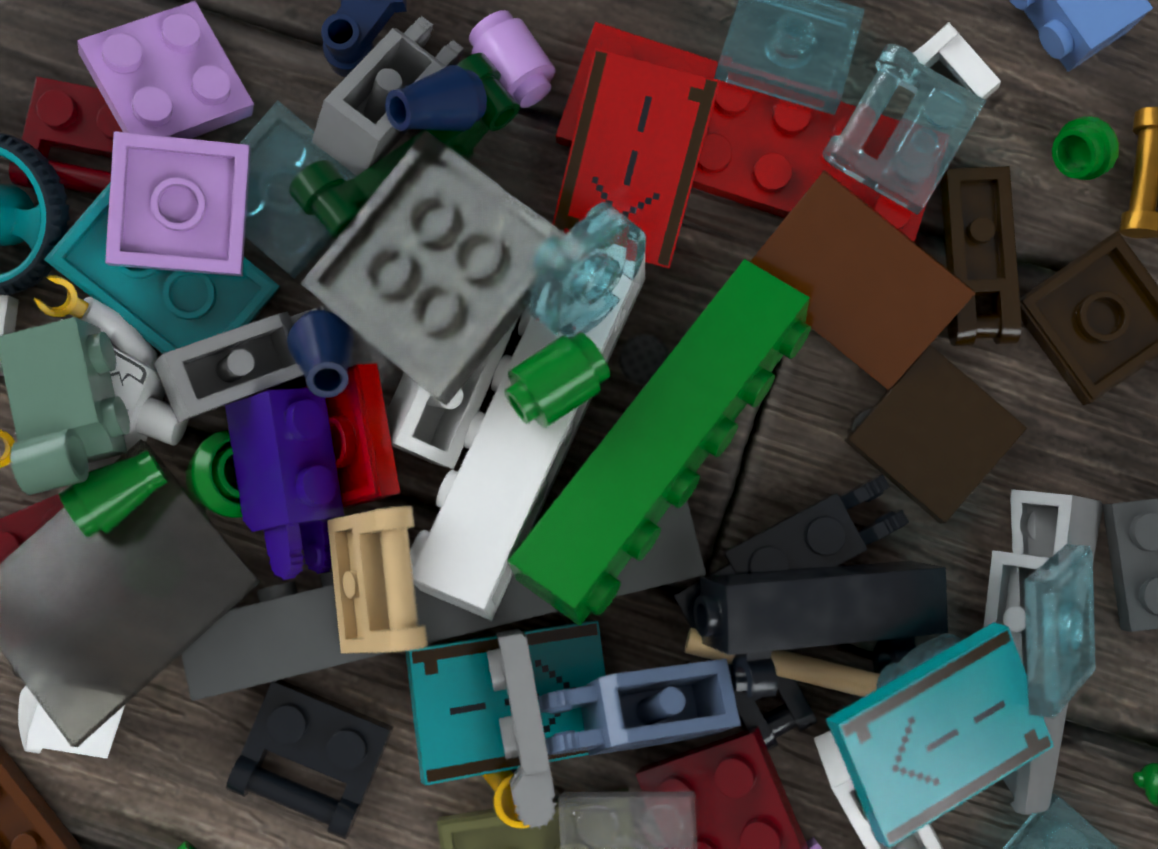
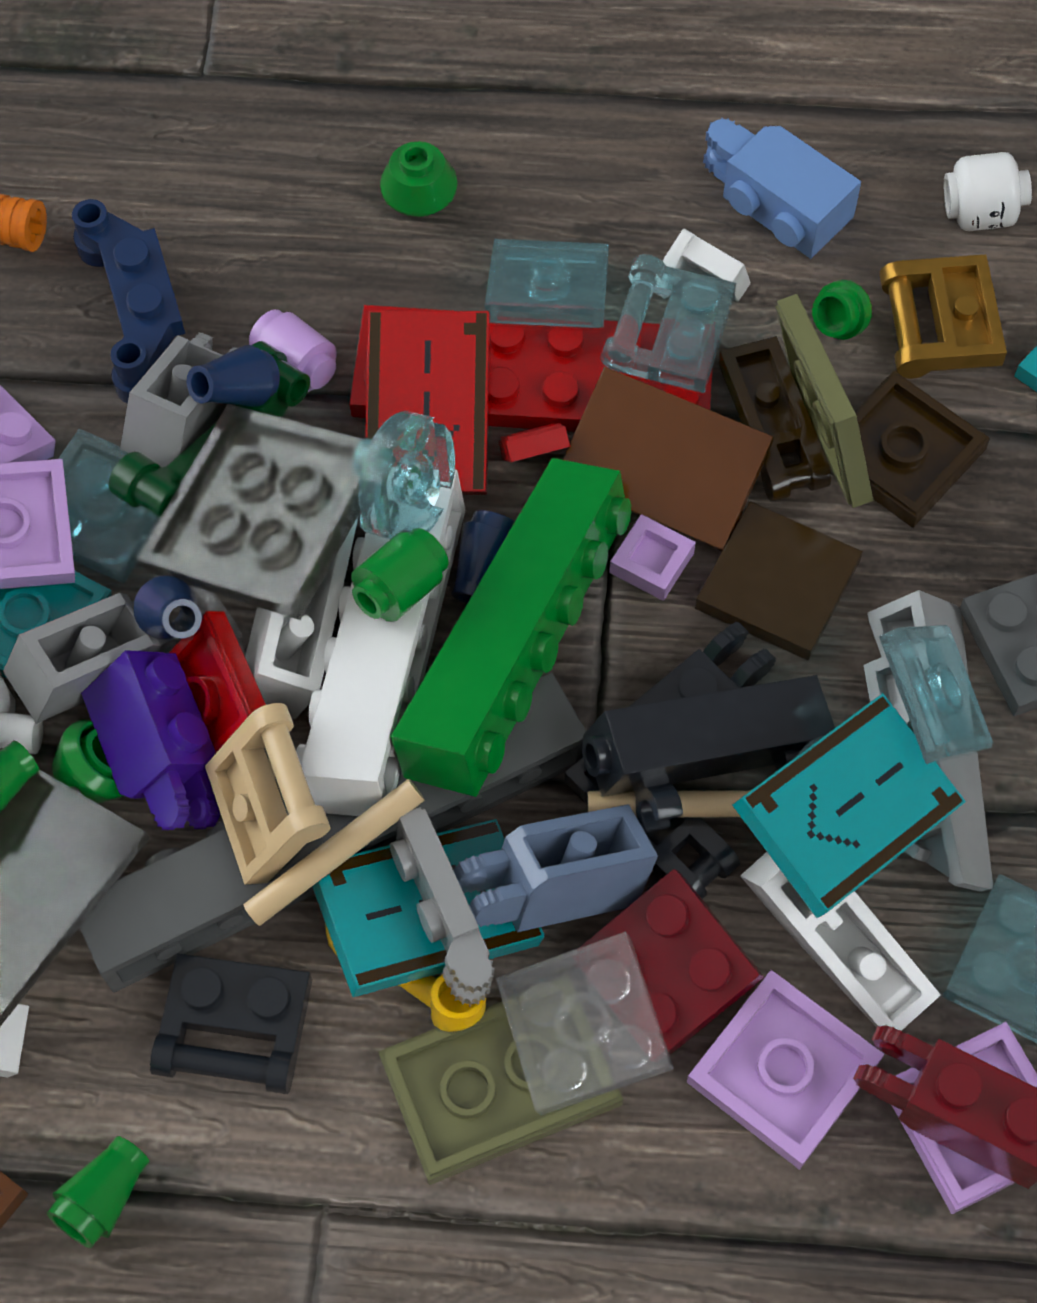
camera: 15 degrees left, 20 degrees down
(439, 649) = (333, 852): none -> tan bar
(649, 341) = (478, 547): none -> dark blue cone
(730, 228) = (533, 442): none -> red tile
(817, 383) = (652, 557): none -> lavender plate
(1042, 271) = (825, 401): none -> olive tile

